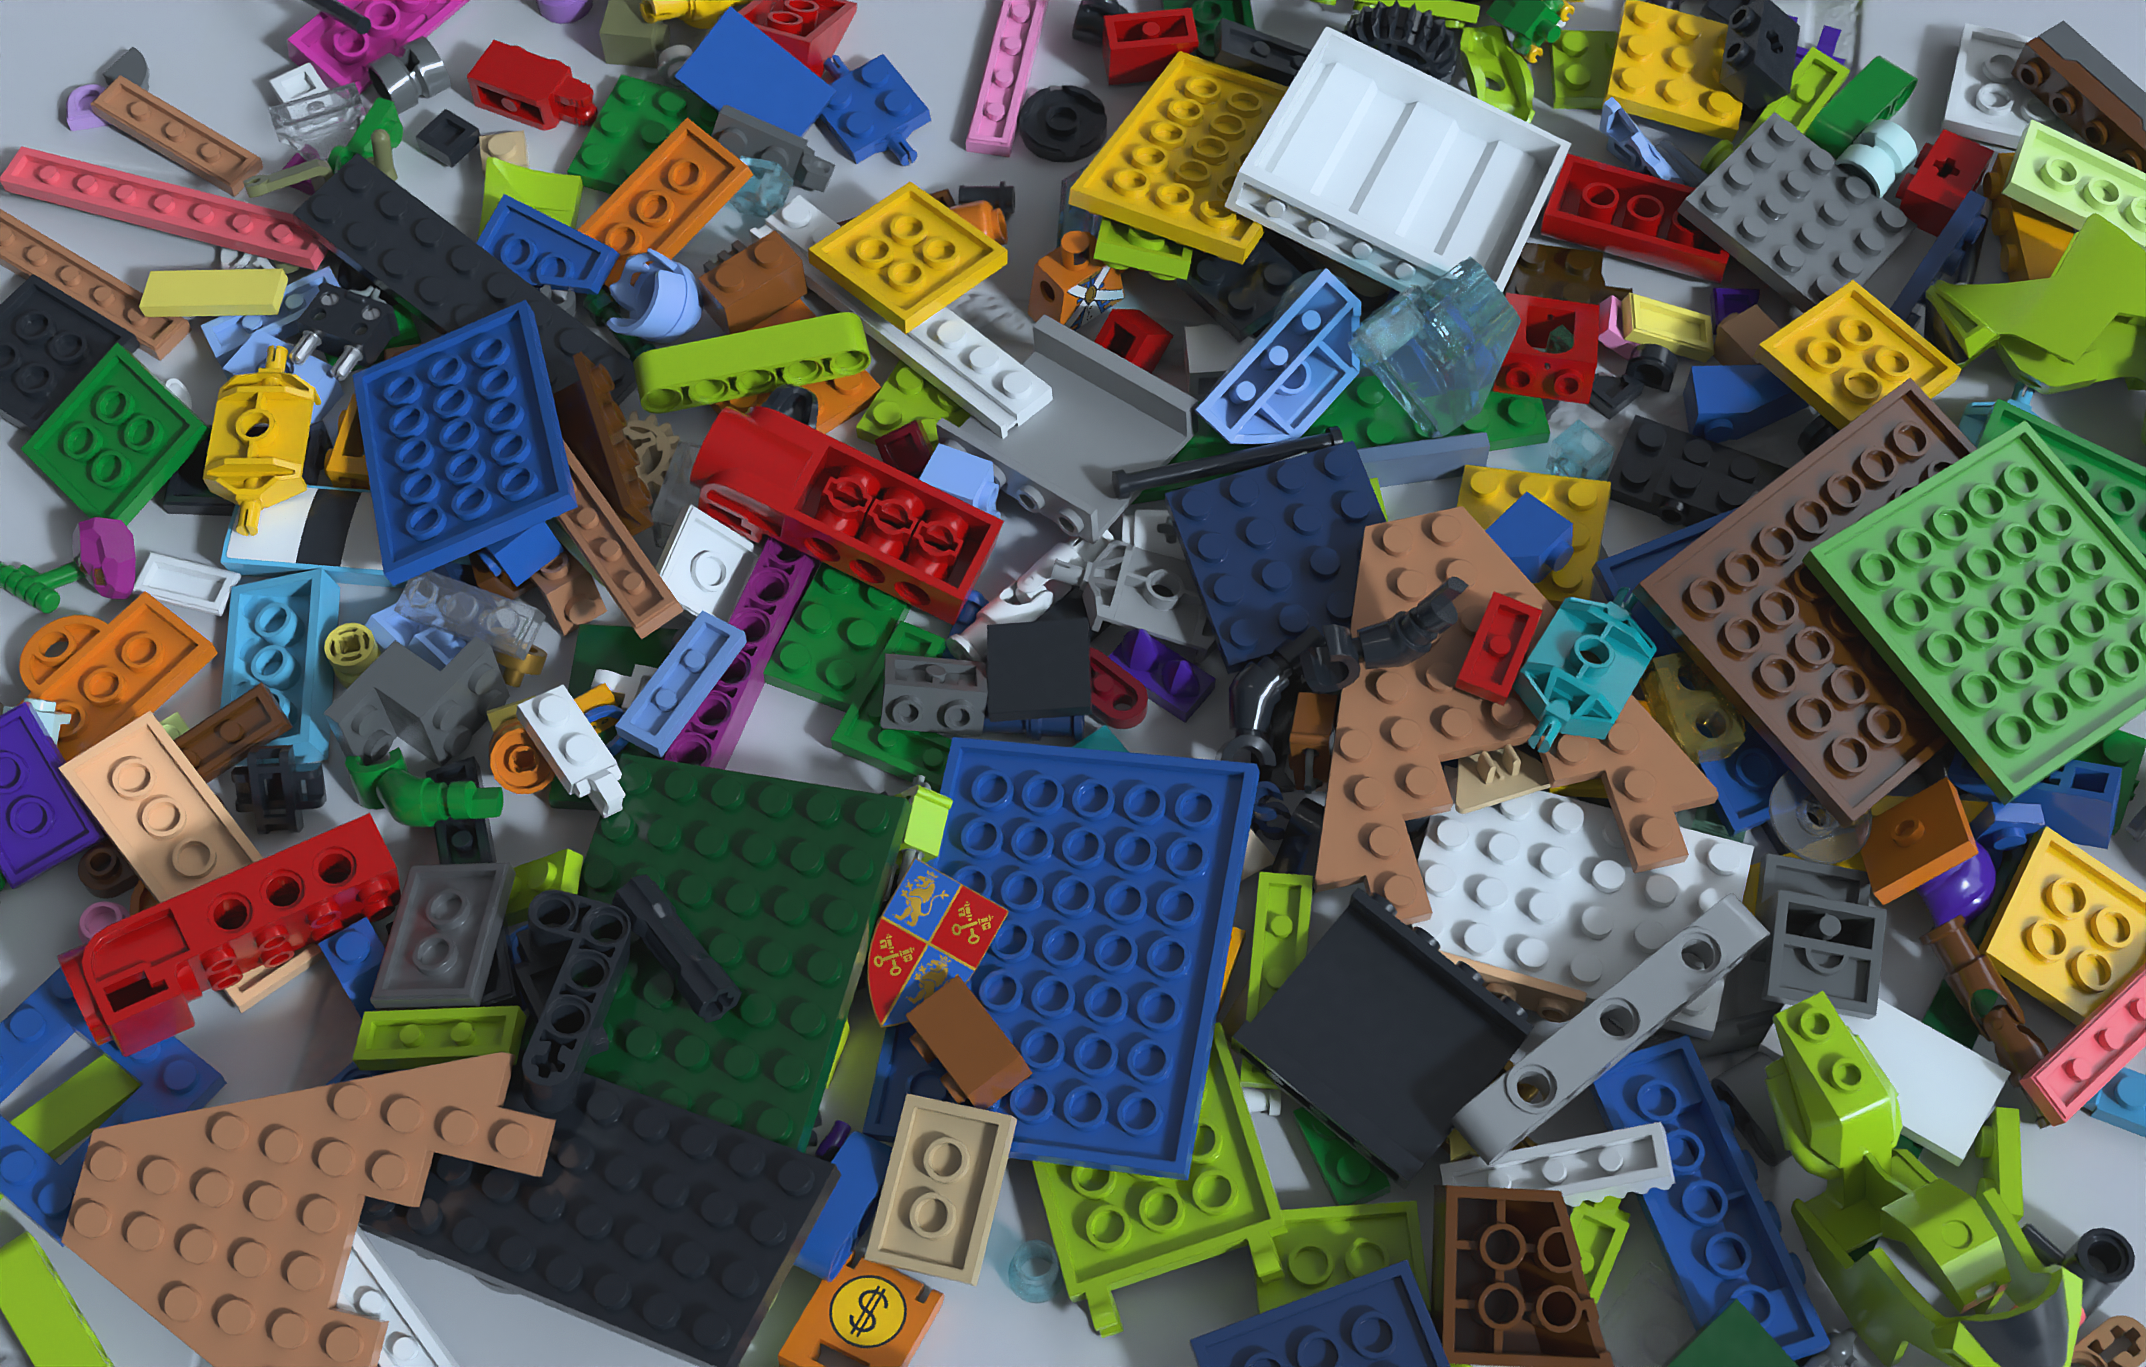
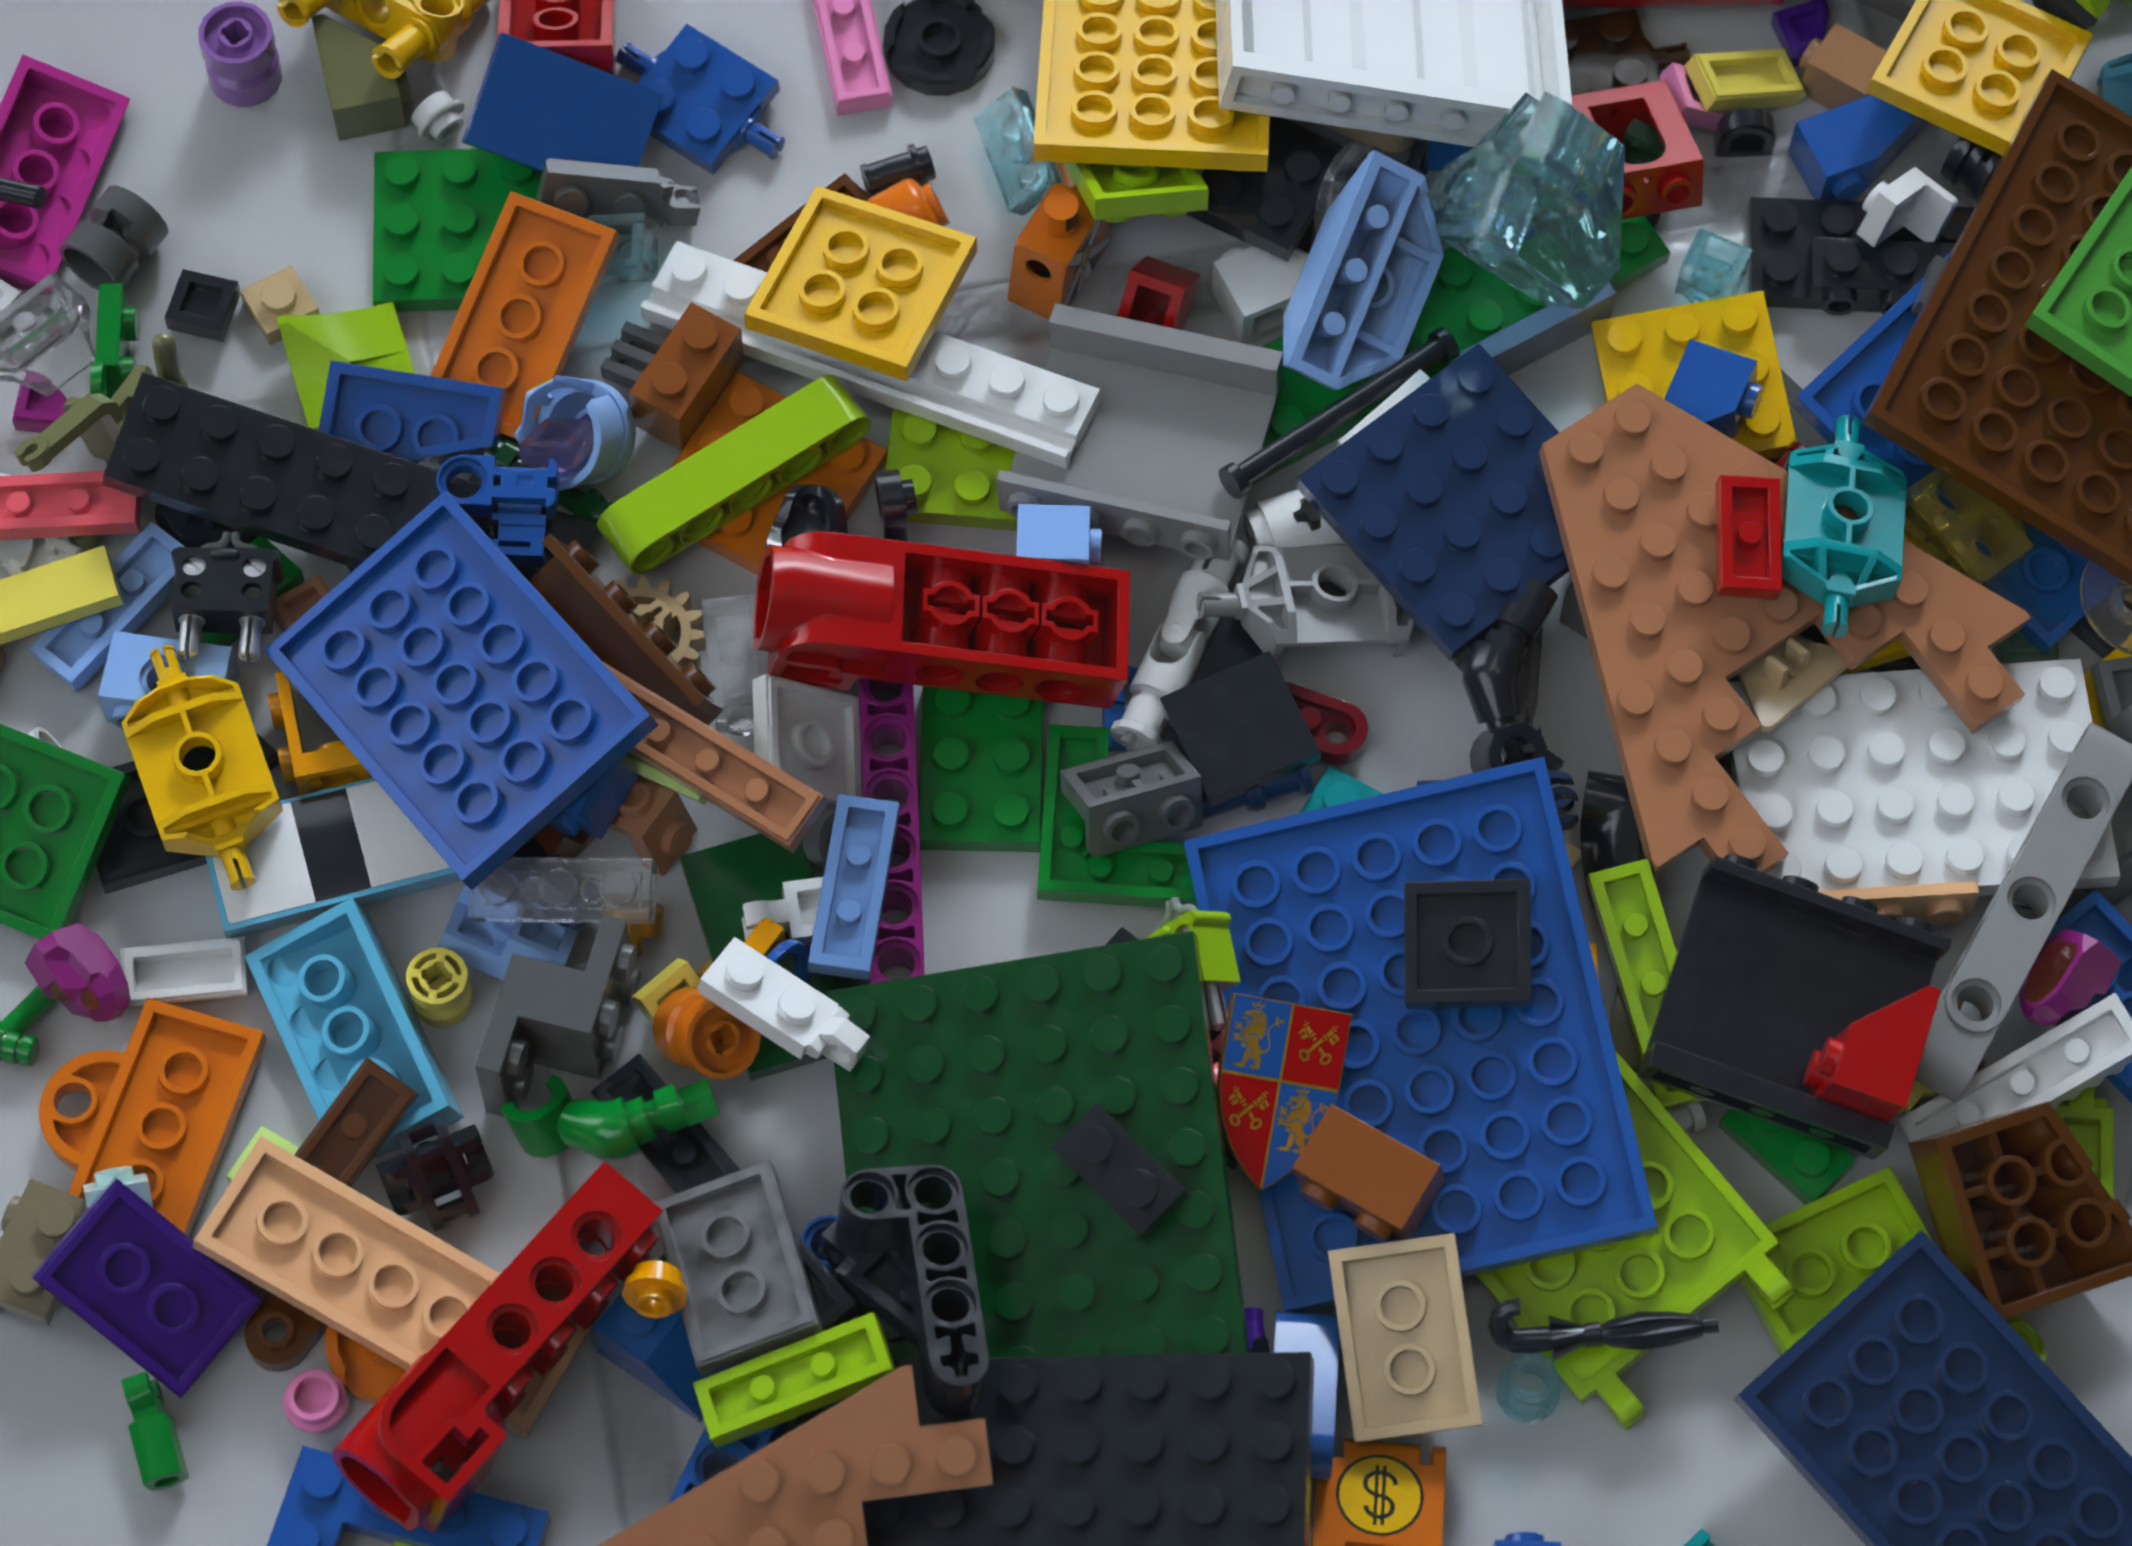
camera: 25 degrees left, 5 degrees up
(367, 928) = (655, 1289): none -> light orange plate
(530, 88) = (274, 207): red hinge -> none
(551, 872) = (812, 1166): lime plate -> none
(574, 324) = (519, 499): none -> blue piece
(628, 300) = (560, 439): none -> clear purple plate
(693, 970) = (1020, 1189): black axle -> none
(762, 966) = (1120, 1171): none -> black plate
(860, 420) = (895, 502): none -> black plate
(906, 448) = (958, 518): dark red tile -> none
(1128, 889) = (1468, 944): none -> black plate
(1131, 1254) = (1630, 1331): none -> black piece
(1165, 674) = (1377, 685): dark purple tile -> none
(1313, 740) = (1574, 700): dark orange piece -> none
(1383, 644) = (1626, 575): black piece -> none
(1424, 1097) = (1875, 1058): none -> red slope
(1614, 393) = (1719, 177): black tile -> none
(1626, 1096) = (2066, 977): none -> magenta rock
(1751, 450) = (1907, 202): none -> white bracket

